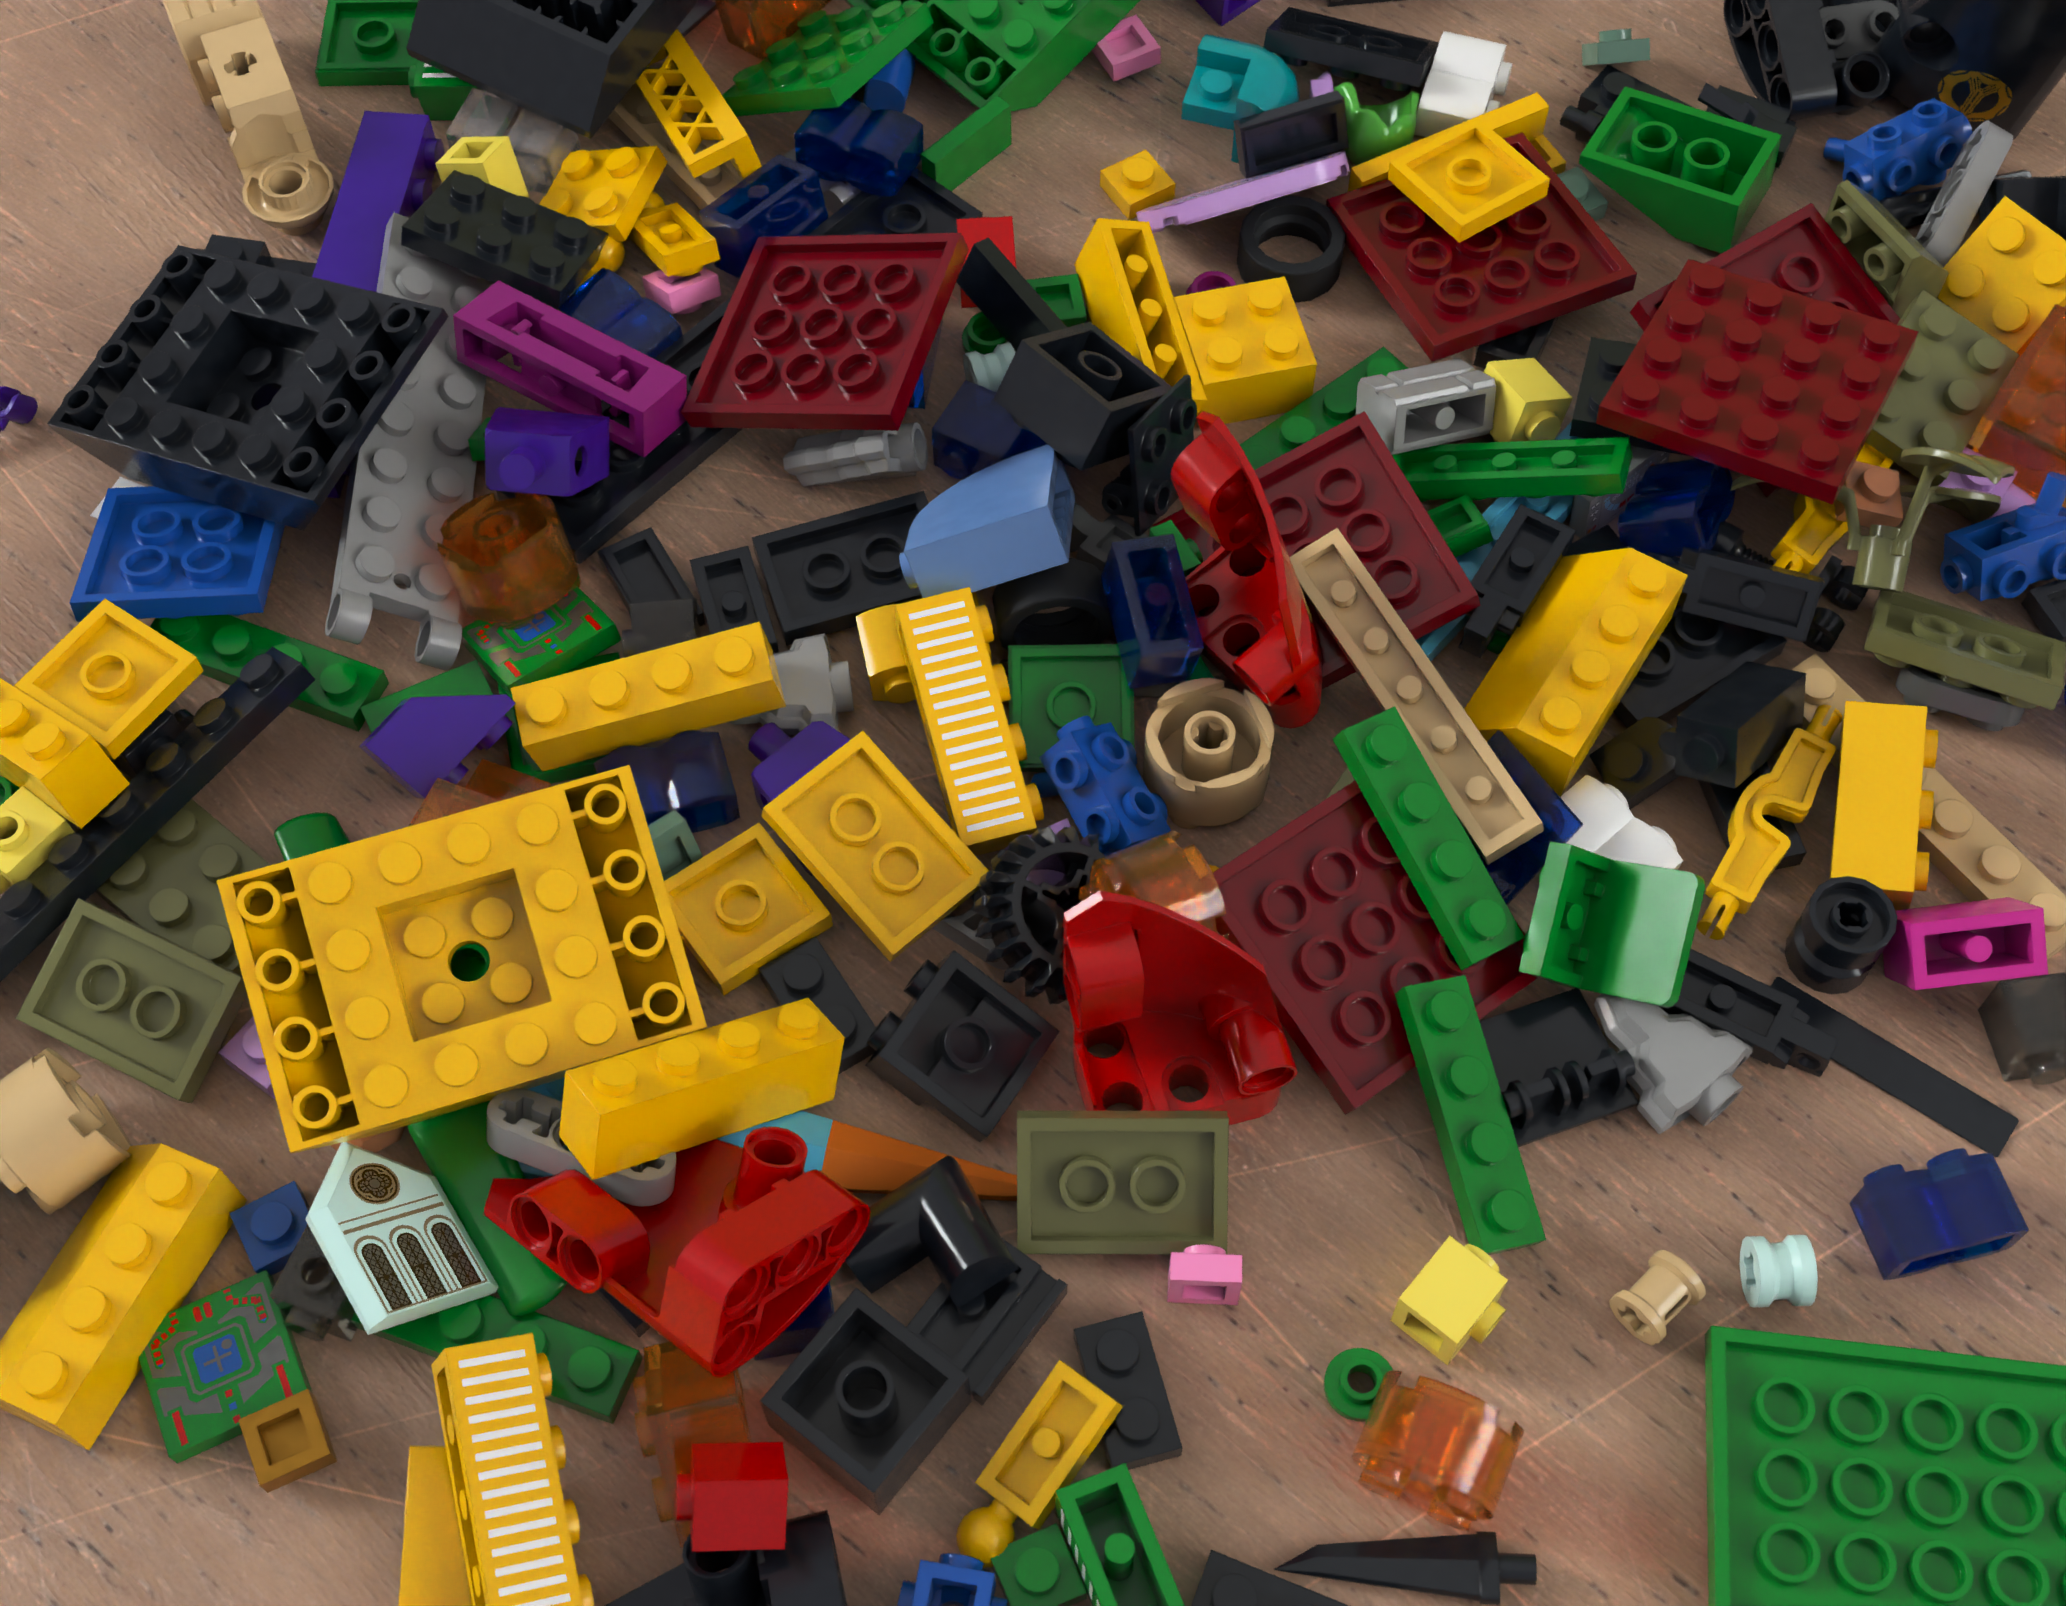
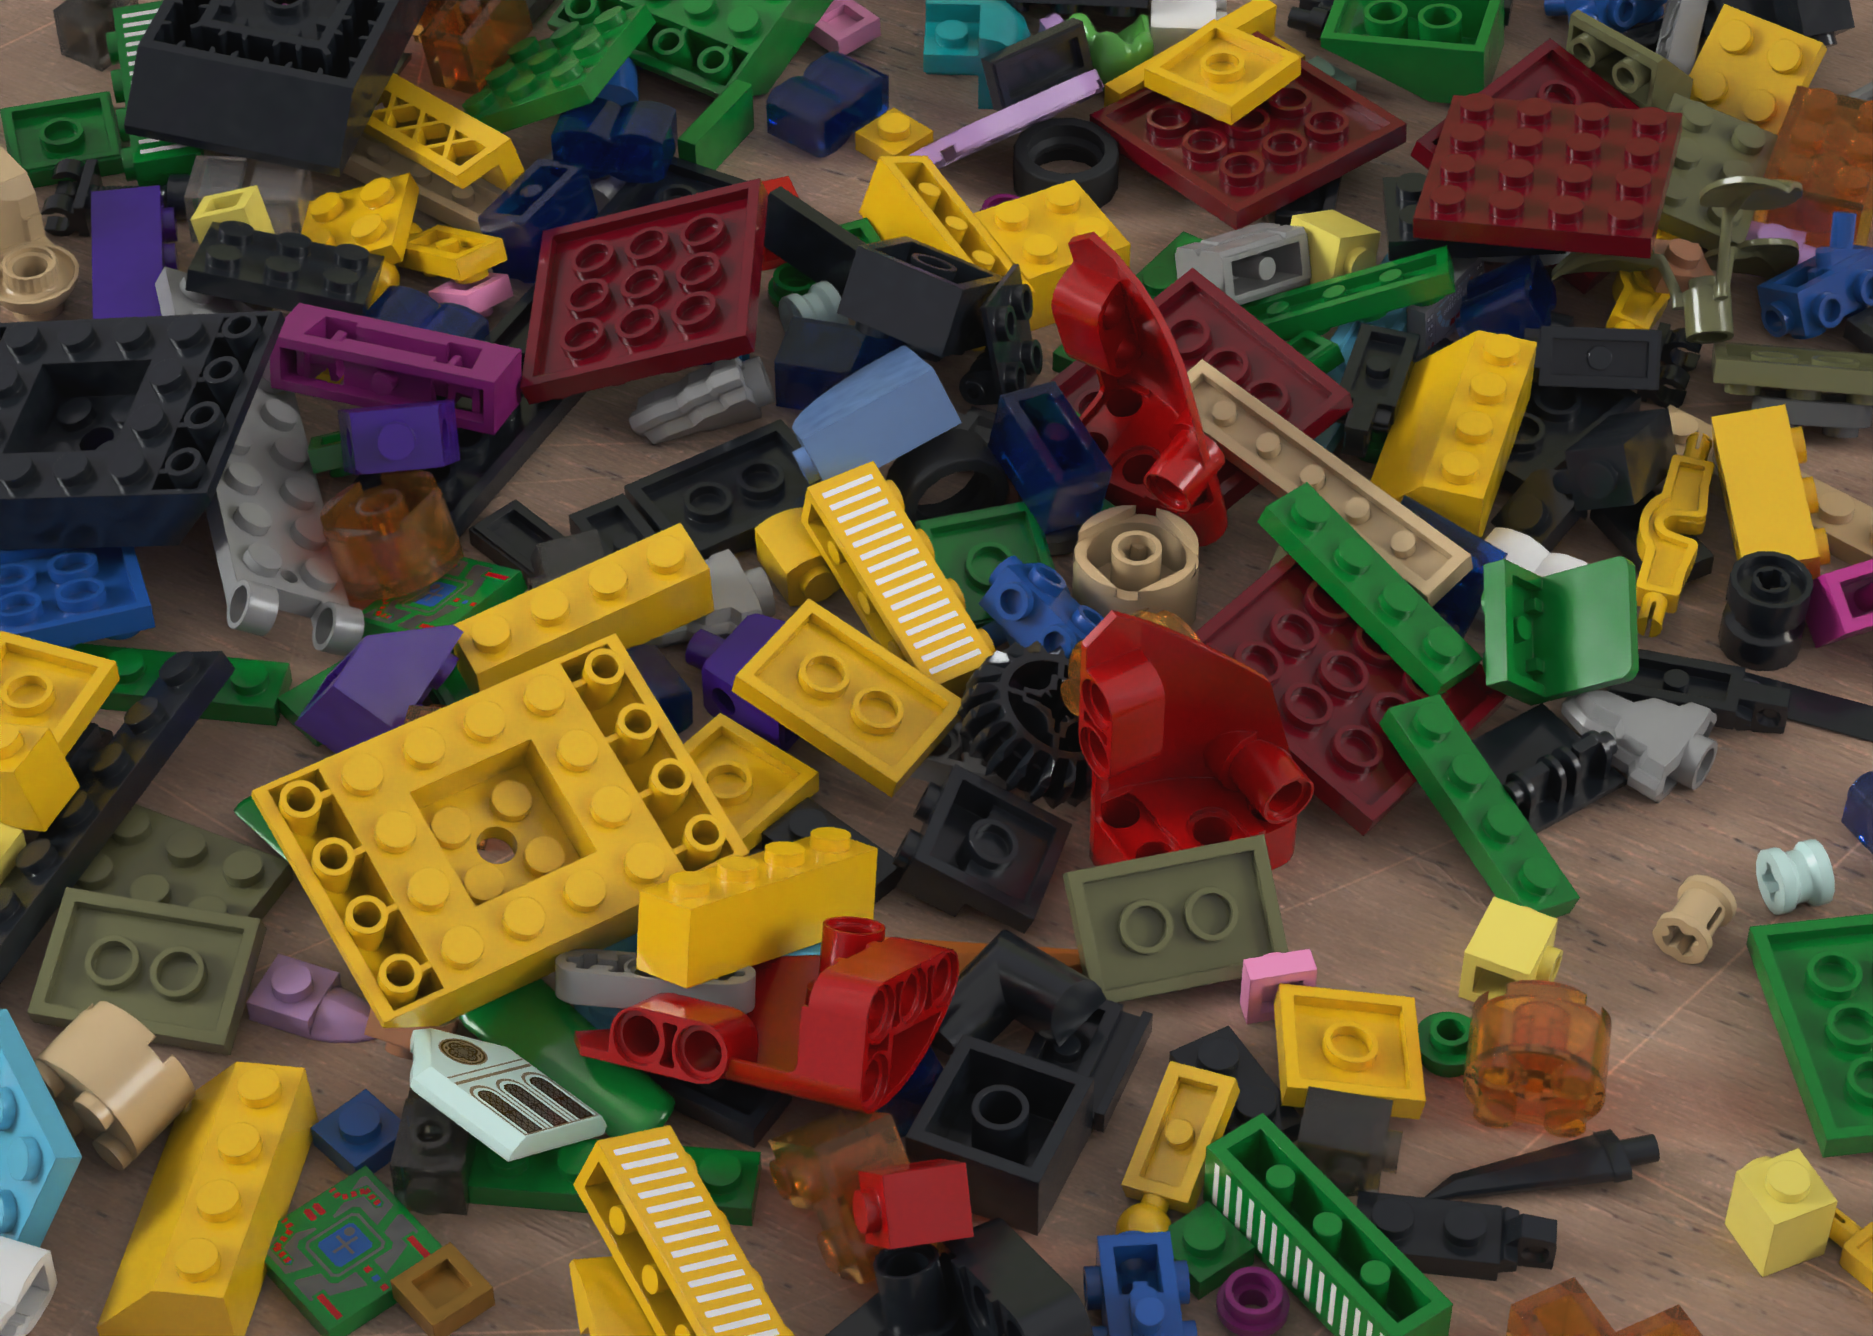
camera: 15 degrees left, 15 degrees down
(378, 94) = (74, 198): none -> black bar
(1082, 134) = (827, 103): none -> clear blue brick
(1214, 1493) = (1349, 1138): none -> clear smoke brick
(1251, 1378) = (1349, 1045): none -> yellow plate

